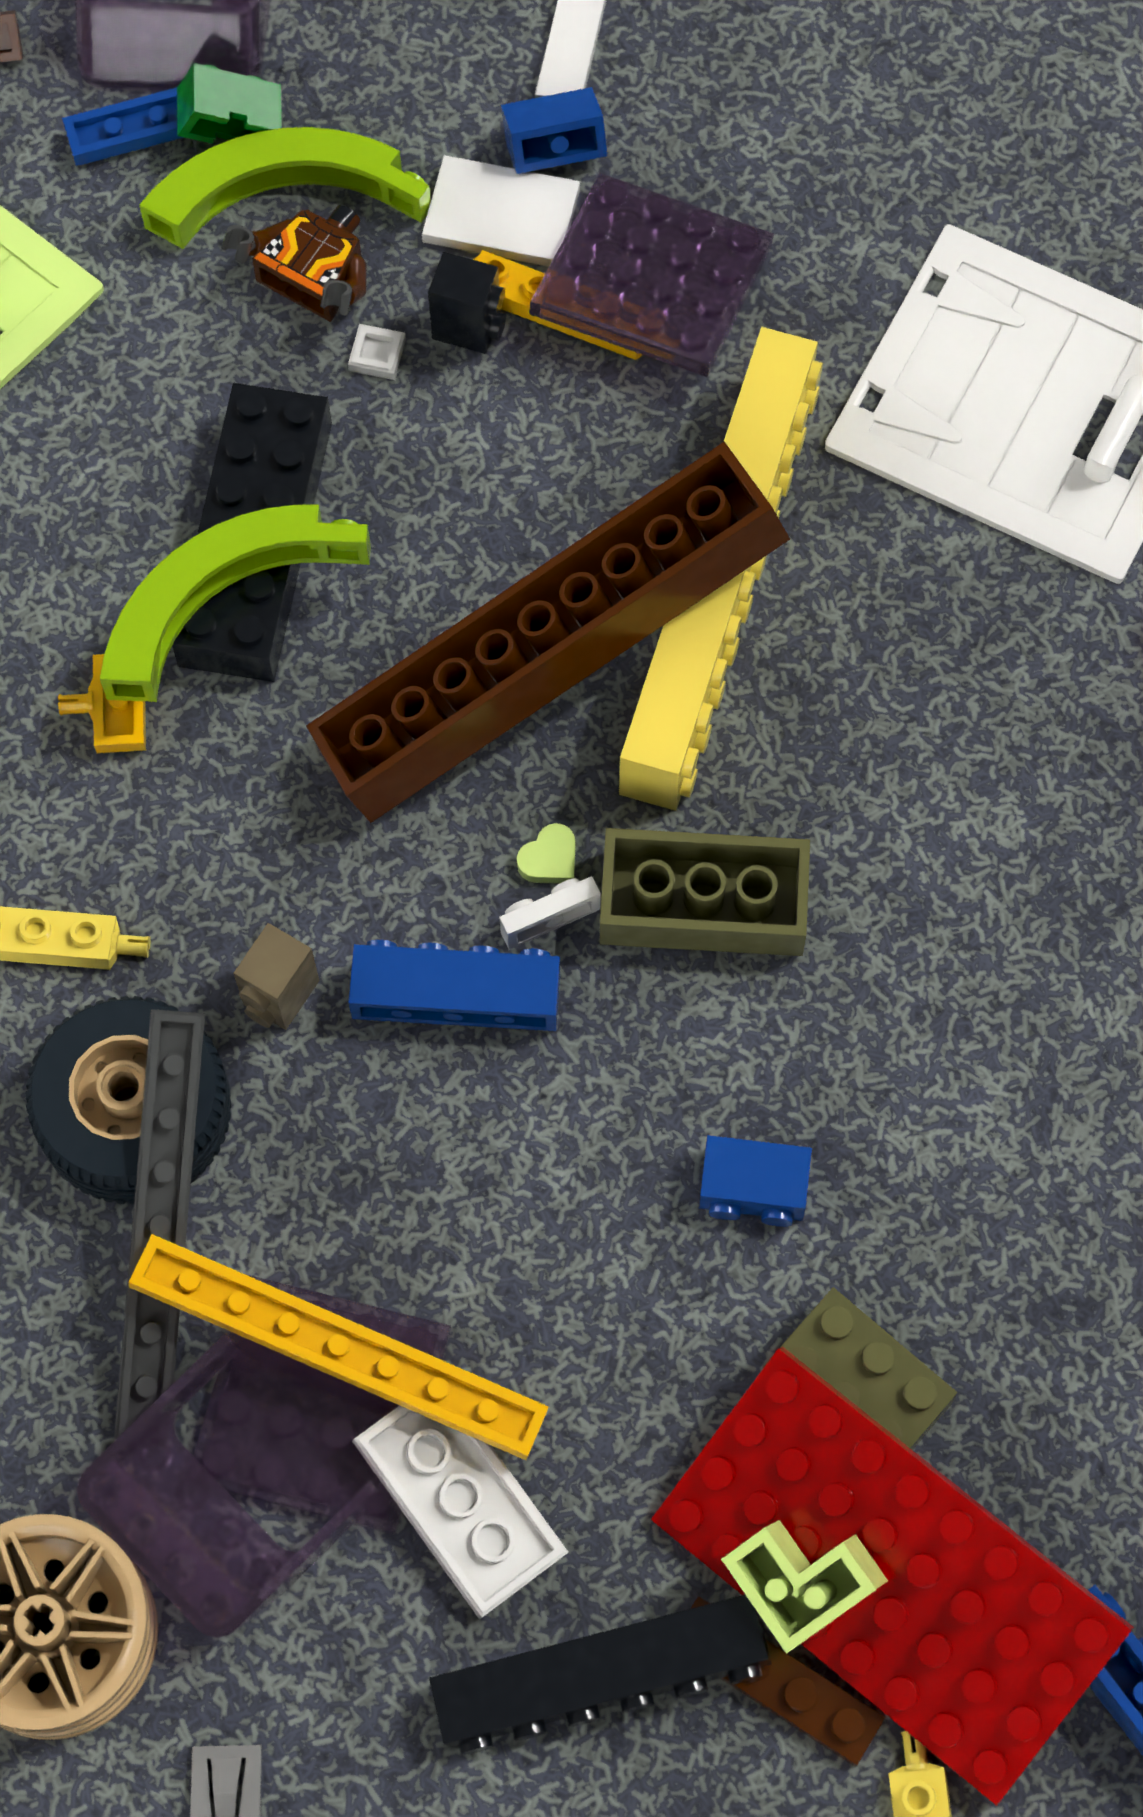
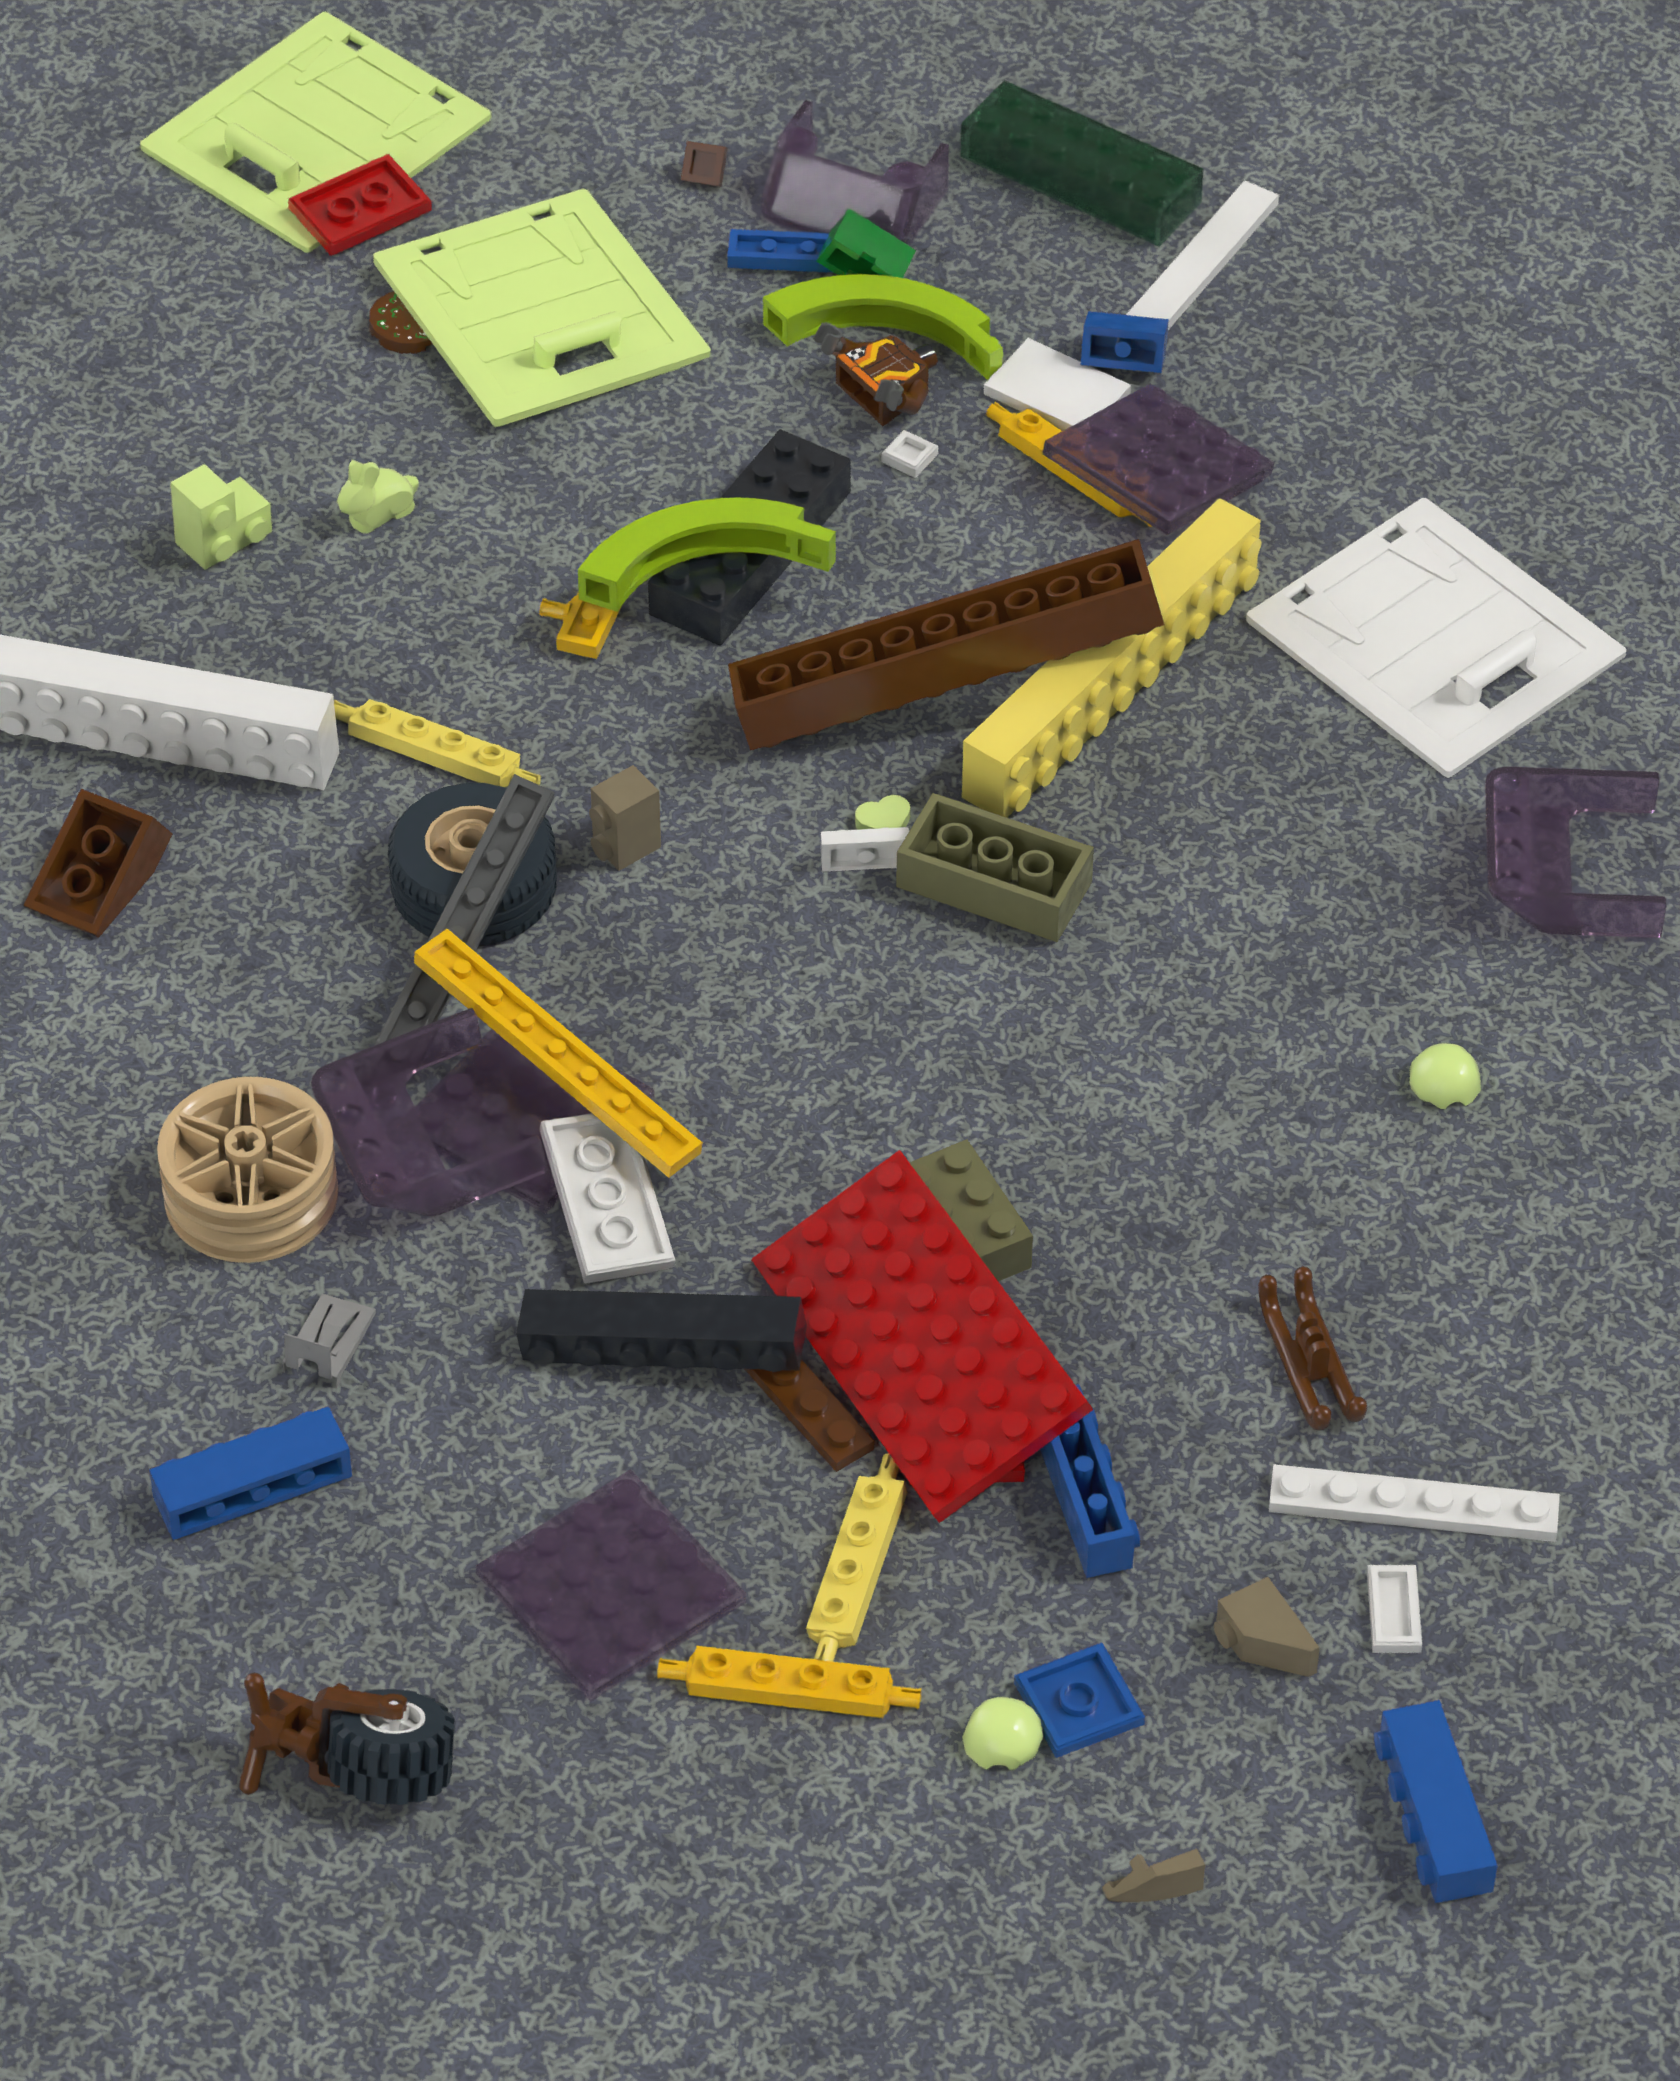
camera: 20 degrees right, 20 degrees down
(455, 986) = (764, 871): blue brick -> none
(466, 303) = (992, 431): black brick -> none
(755, 1180) = (943, 1066): blue brick -> none
(791, 1592) = (843, 1307): yellowish green brick -> none

